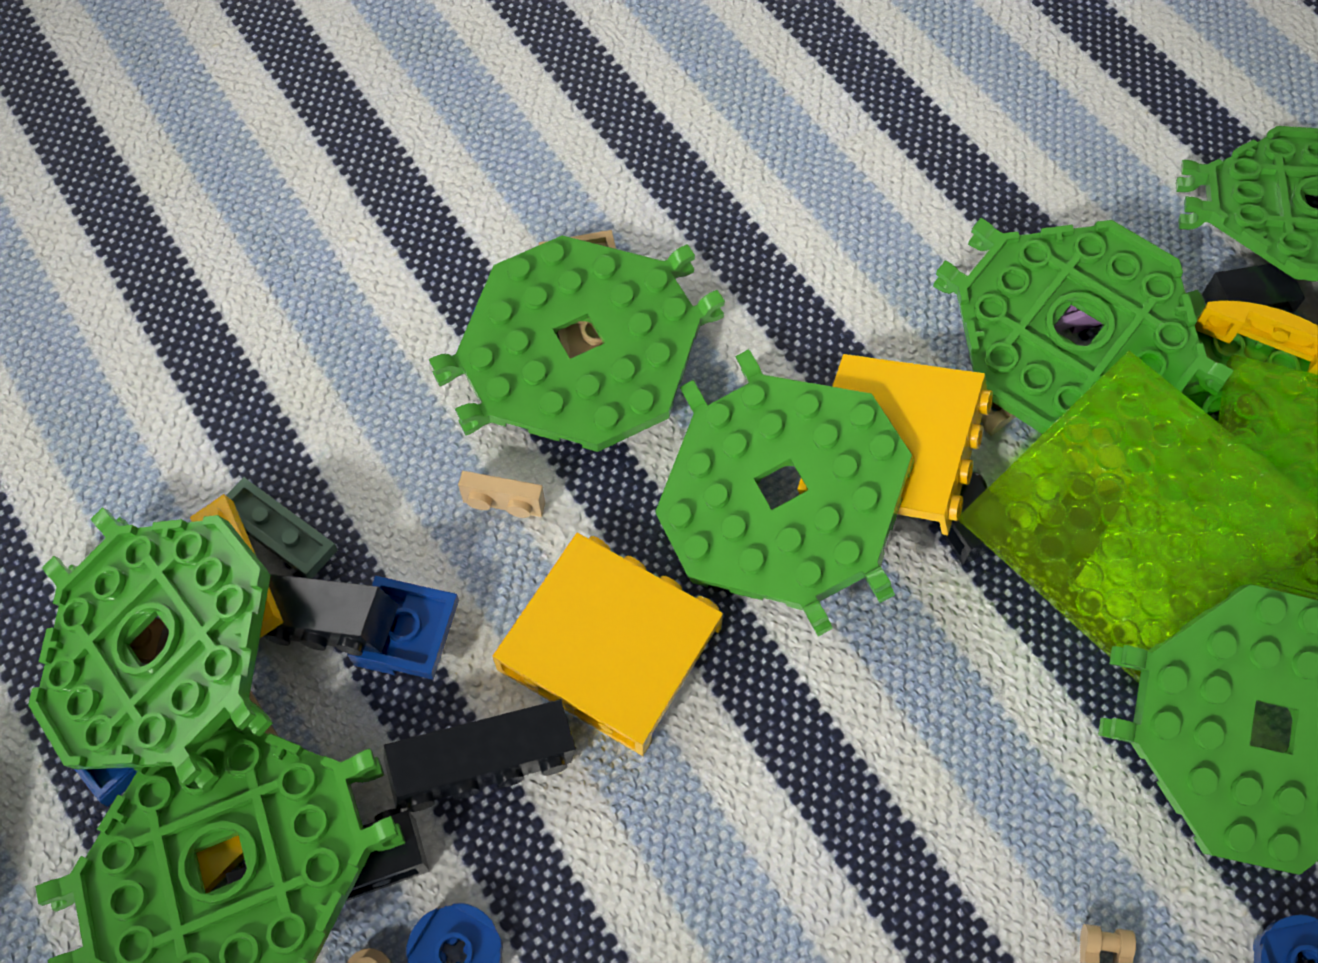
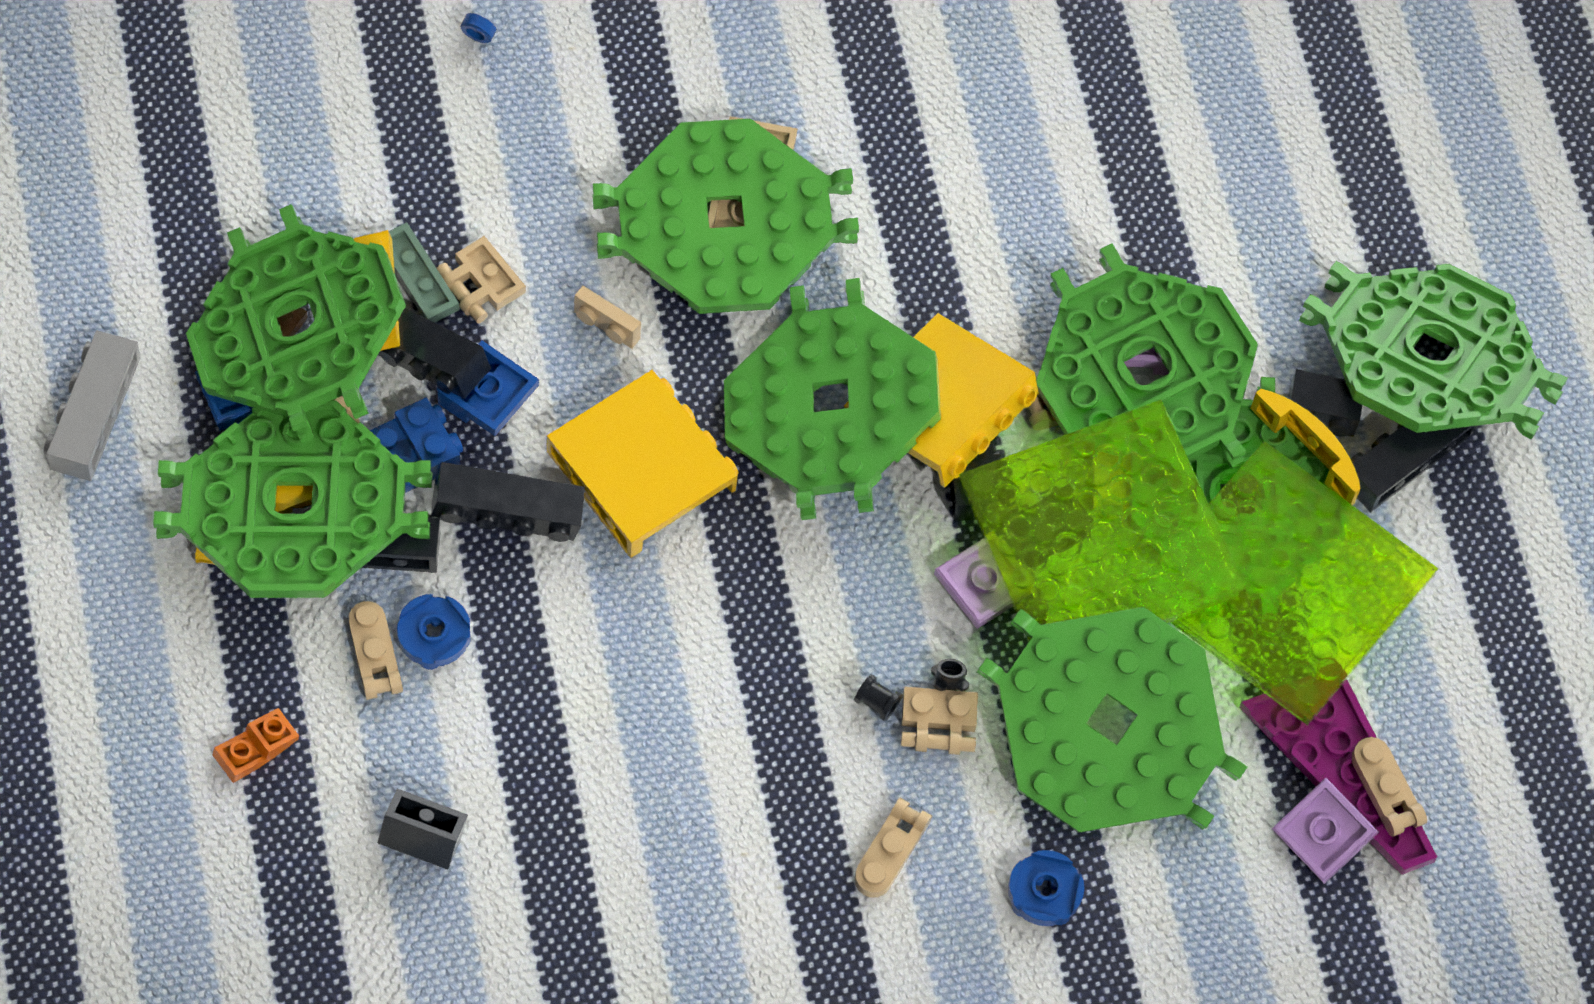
camera: 15 degrees right, 0 degrees up
(247, 252) = (478, 28): none -> blue tile
(347, 719) = (419, 436): none -> blue plate
(356, 497) = (488, 272): none -> tan plate
(998, 808) = (878, 697): none -> black bush
(1028, 626) = (975, 584): none -> plate
(1059, 747) = (950, 675): none -> black plate
(1069, 790) = (939, 710): none -> tan plate

